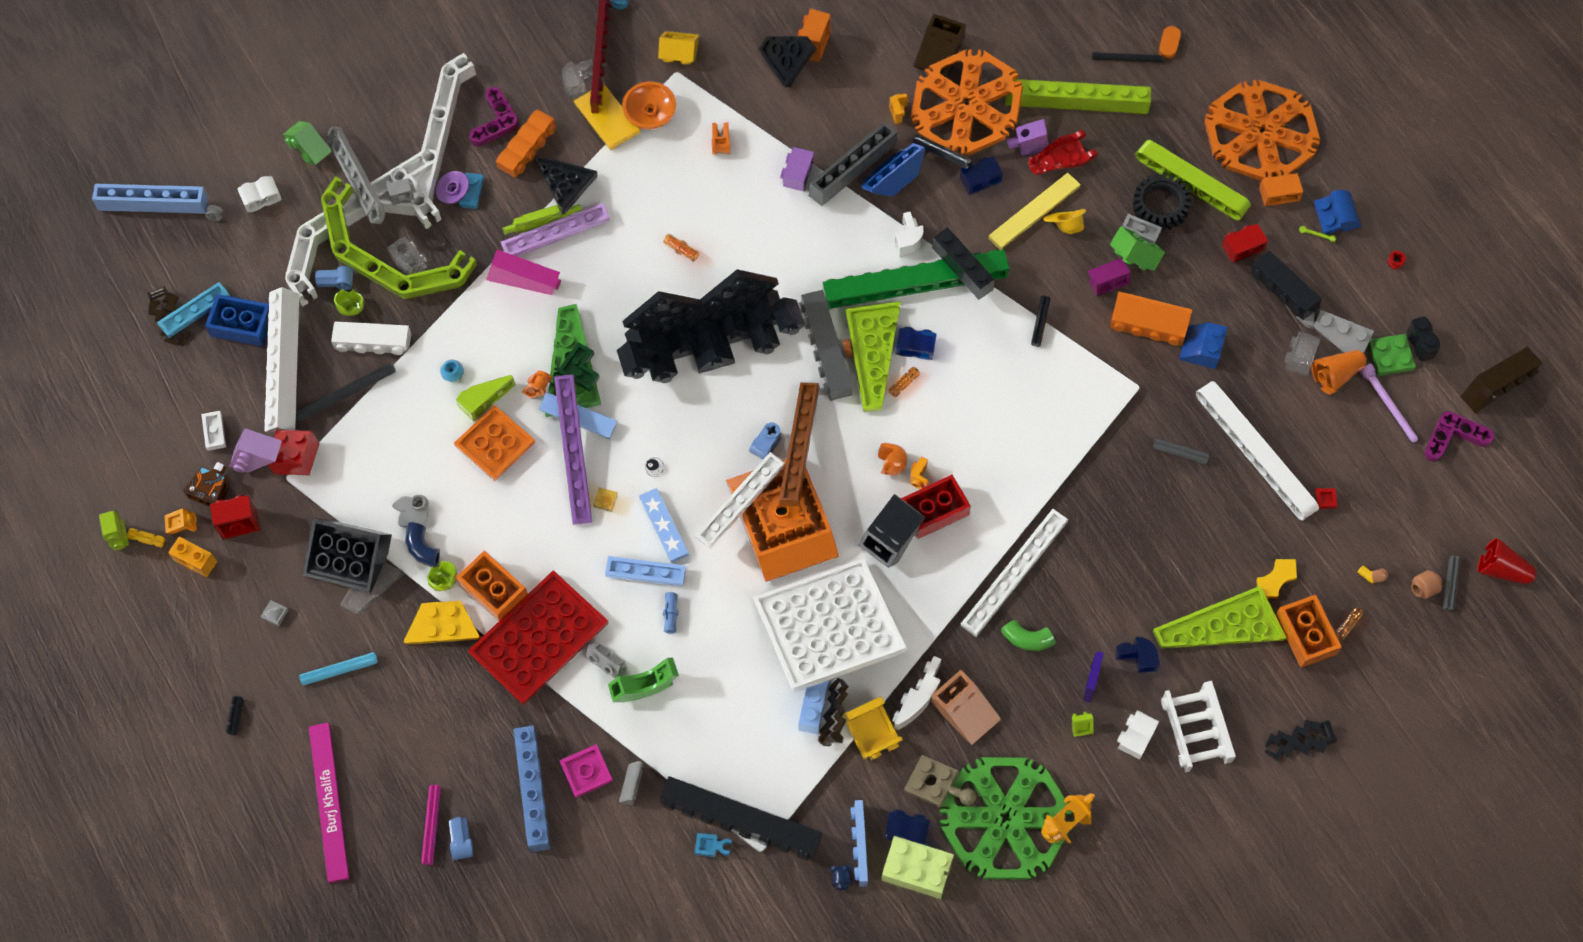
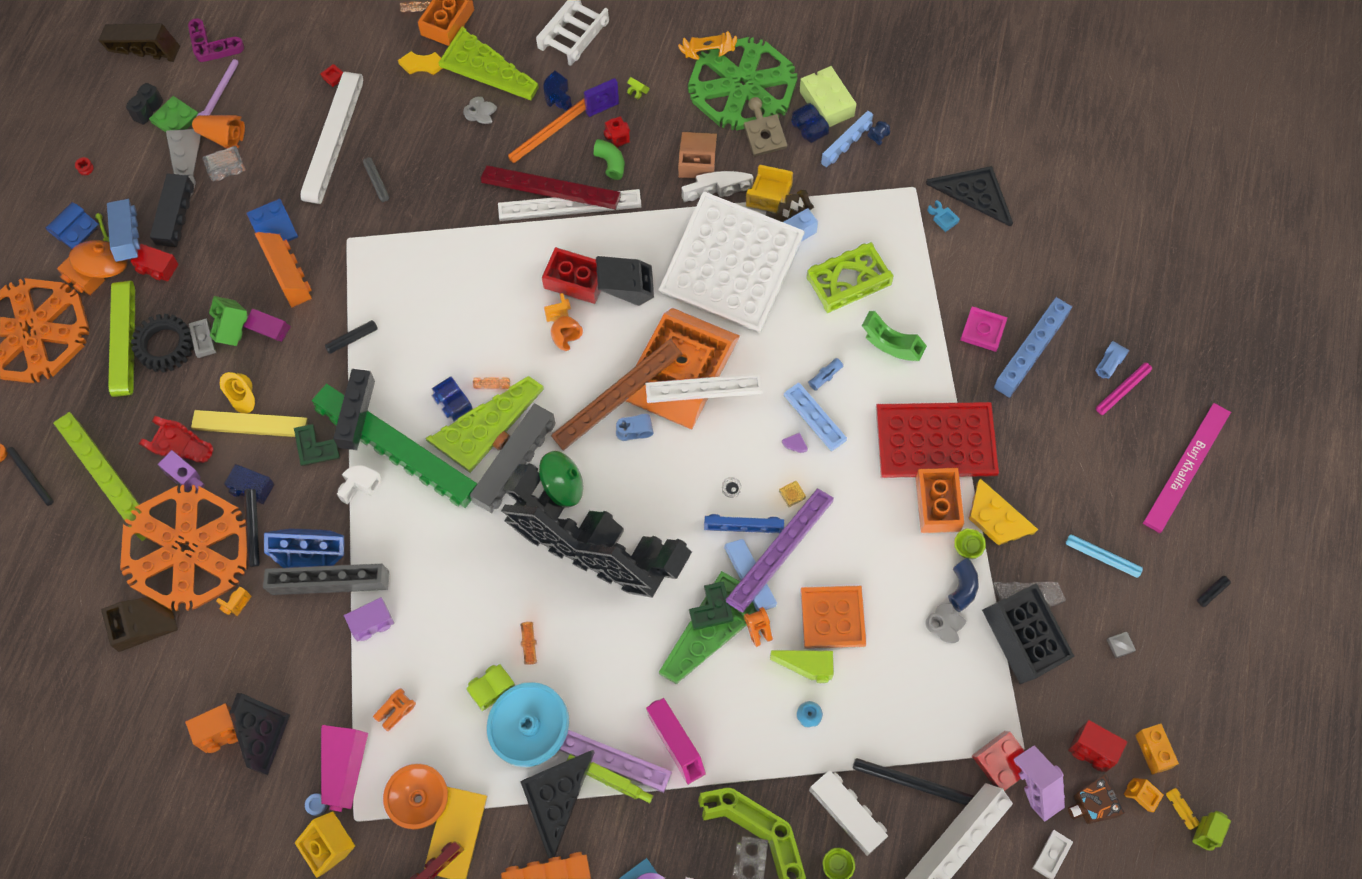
camera: 135 degrees left, 0 degrees up
(598, 655) = (905, 389): light grey hinge -> none
(599, 461) = (739, 524): none -> blue plate
(625, 199) = (527, 724): none -> medium azure dish
(631, 783) = (959, 296): light grey slope -> none
(640, 540) = (795, 443): none -> medium lavender tile
(664, 525) = (768, 439): light blue tile -> none
(675, 202) = (489, 687): none -> lime brick
(709, 902) = (976, 189): none -> black tile
(710, 61) = (314, 806): none -> light blue tile
(718, 87) = (340, 765): none -> dark pink slope
(720, 683) = (852, 261): none -> lime fence
(740, 818) = (911, 210): black brick -> none
(779, 349) = (561, 479): none -> green dish
(973, 229) = (312, 451): none -> dark green plate
(1043, 568) = (551, 187): none -> dark red plate
(1048, 663) = (617, 131): none -> red brick
(1106, 629) = (547, 131): none -> orange axle
(1137, 735) = (612, 54): white brick -> none
(1177, 584) = (479, 110): none -> light grey plate
(1270, 206) = (95, 259): none -> orange dish
(1293, 236) = (123, 230): none -> medium blue brick
(1373, 576) = (369, 17): arm -> none

